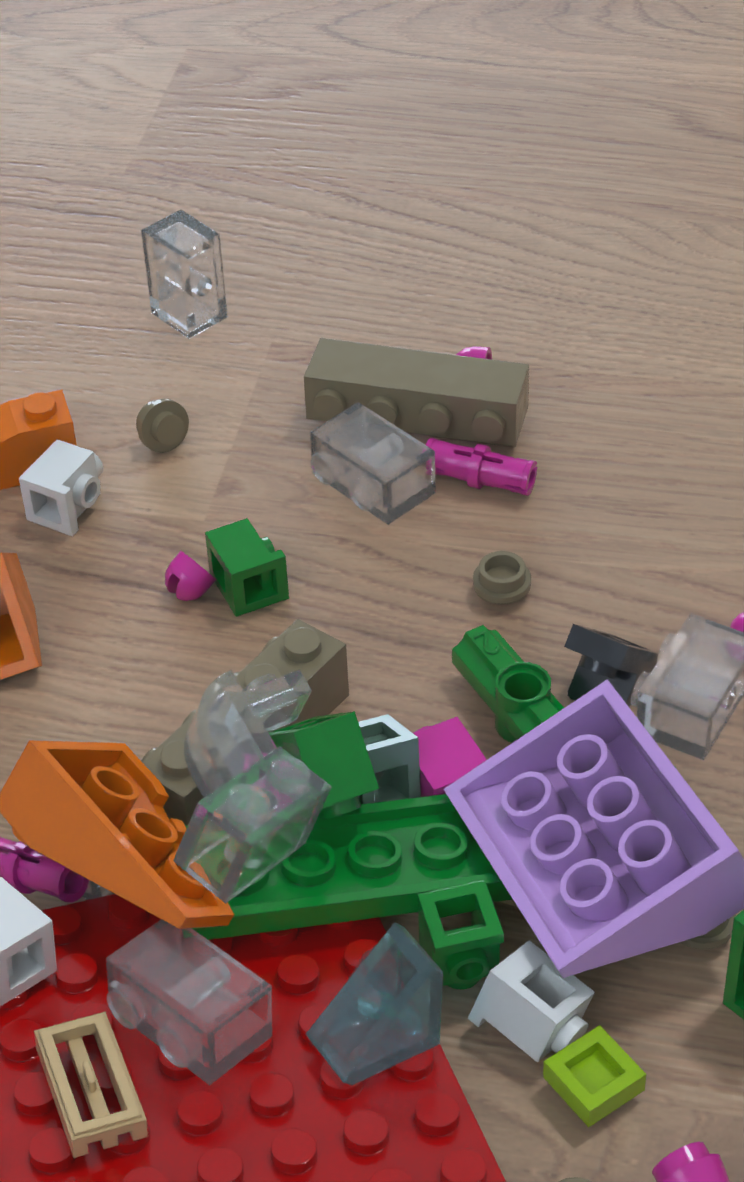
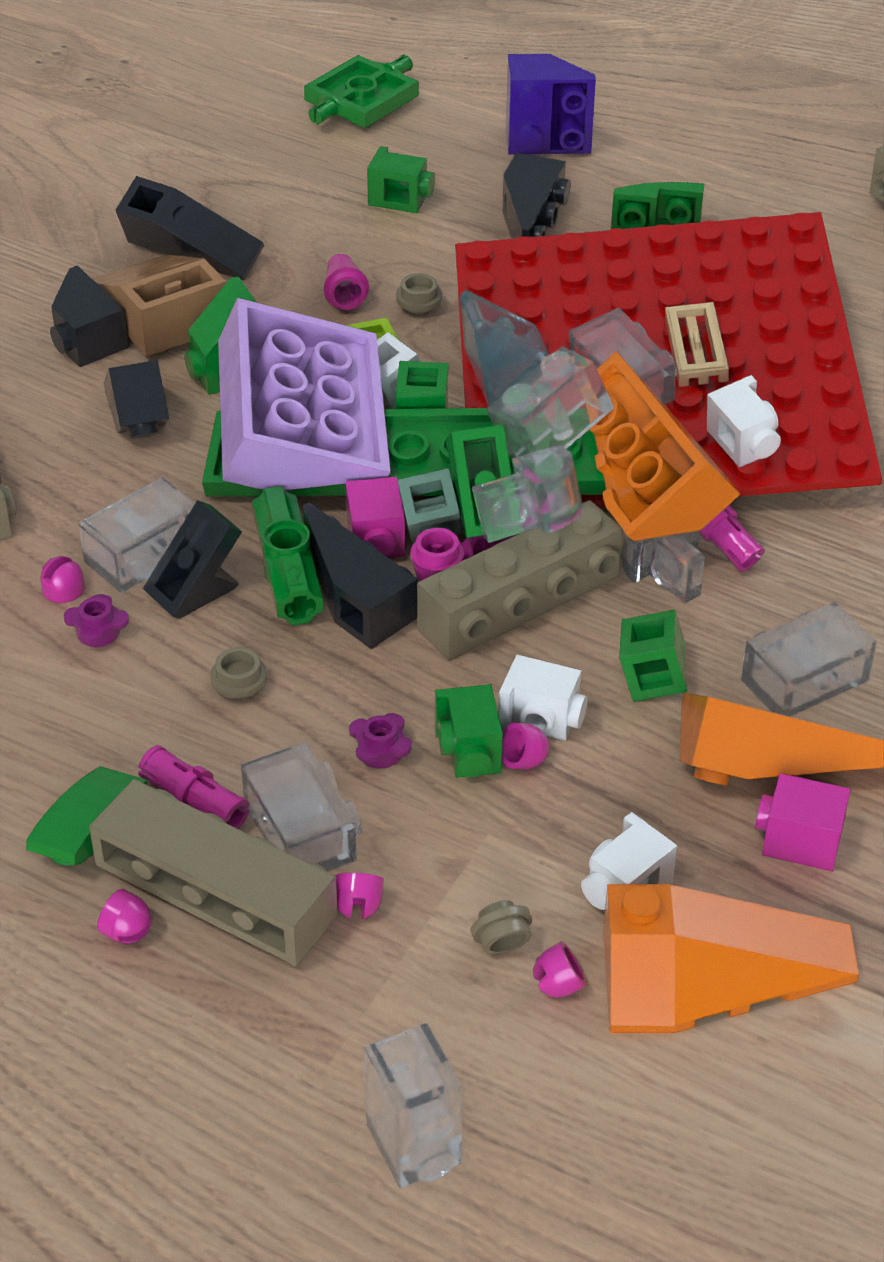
camera: 165 degrees left, 0 degrees up
(75, 694) = (653, 655): none -> green brick
(105, 413) = (559, 972): none -> dark pink hinge
(183, 613) = (542, 696): none -> white brick
(305, 423) = (359, 890): none -> dark pink hinge
(332, 554) = (380, 740): none -> magenta plate
(341, 689) = (435, 551): none -> dark pink cone
(427, 683) = (361, 585): none -> black slope
(555, 423) = (65, 828): none -> green slope
(680, 596) = (96, 620): none -> magenta plate

